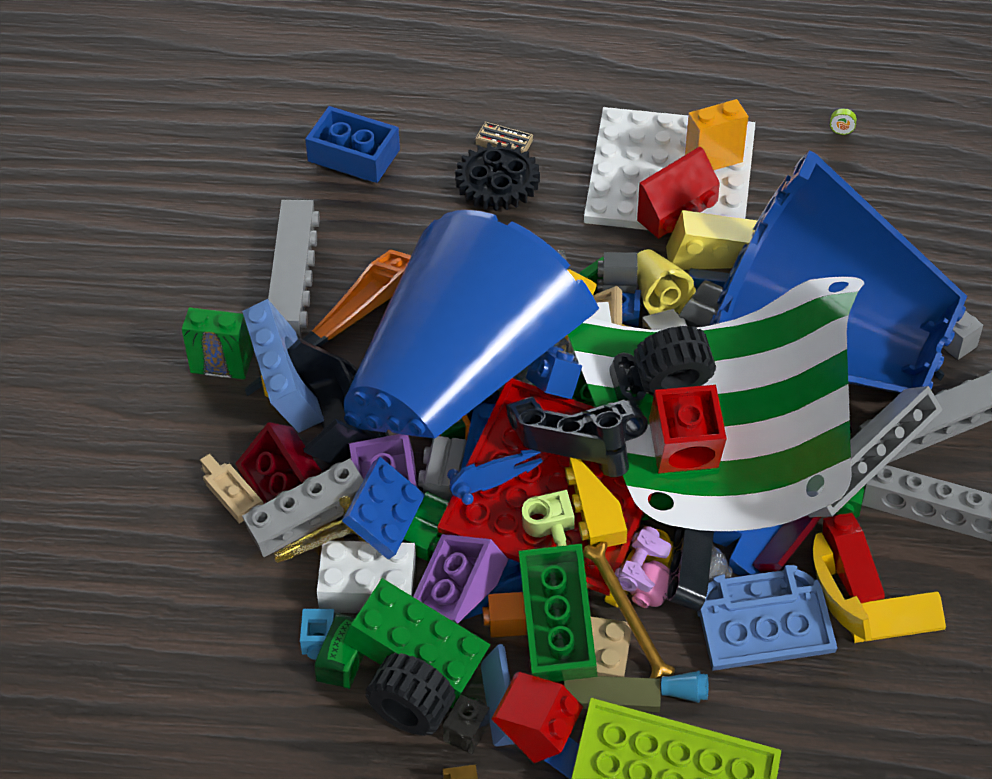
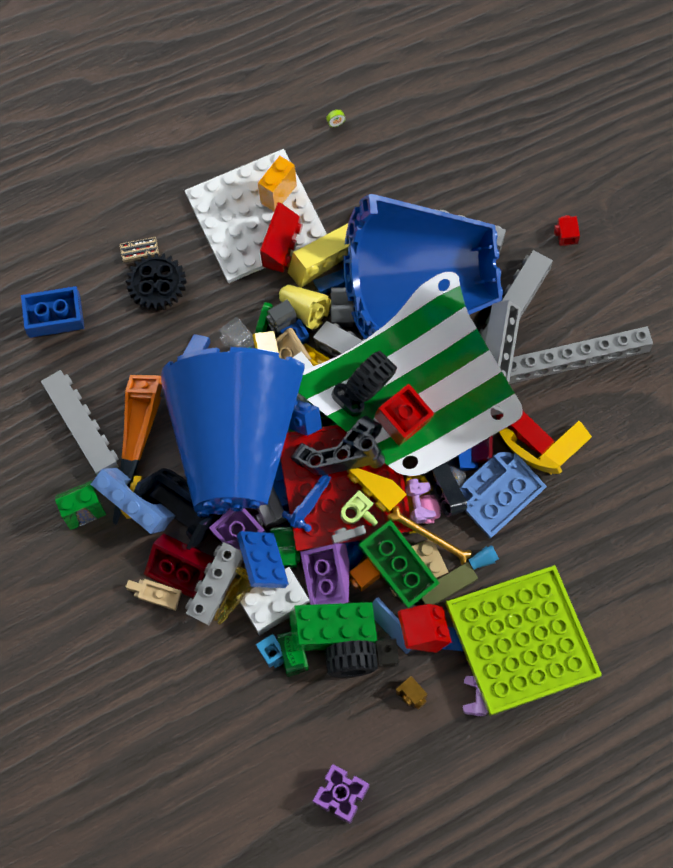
camera: 30 degrees left, 20 degrees up
(513, 540) = (342, 535): none -> light grey plate

